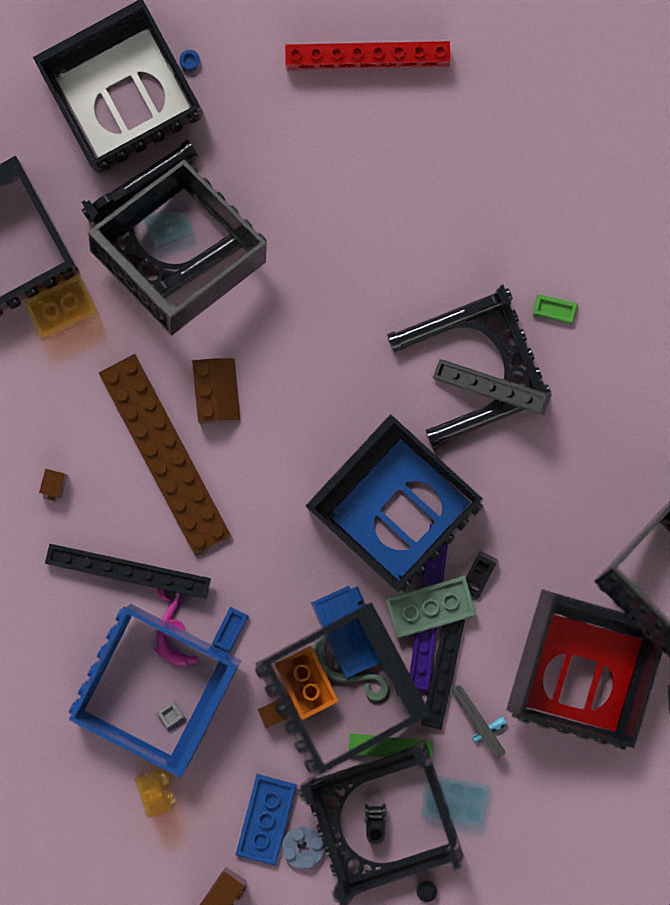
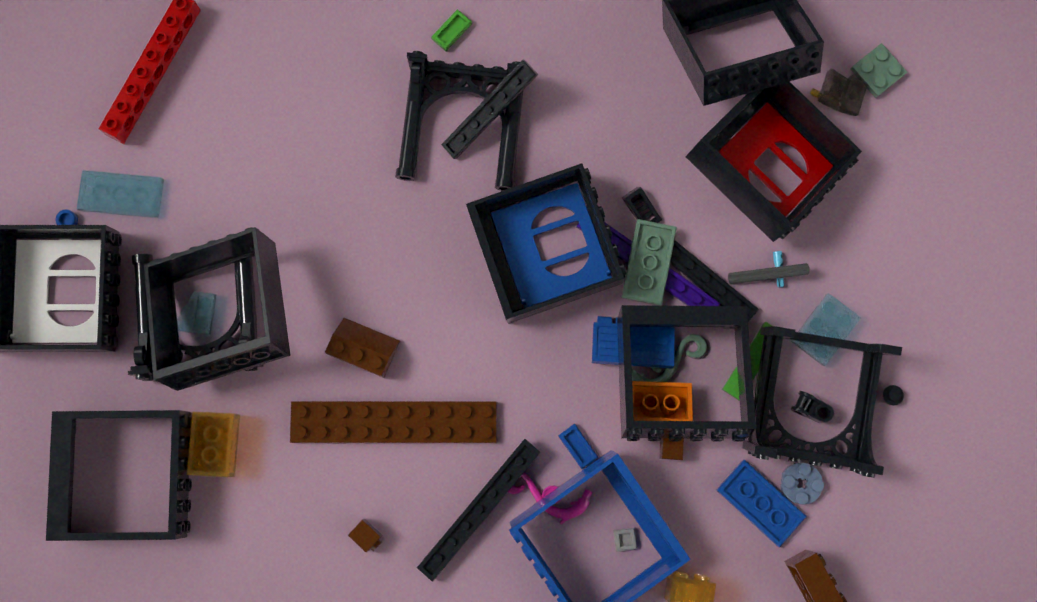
camera: 70 degrees left, 5 degrees down
(238, 94) = (120, 194): none -> clear light blue plate

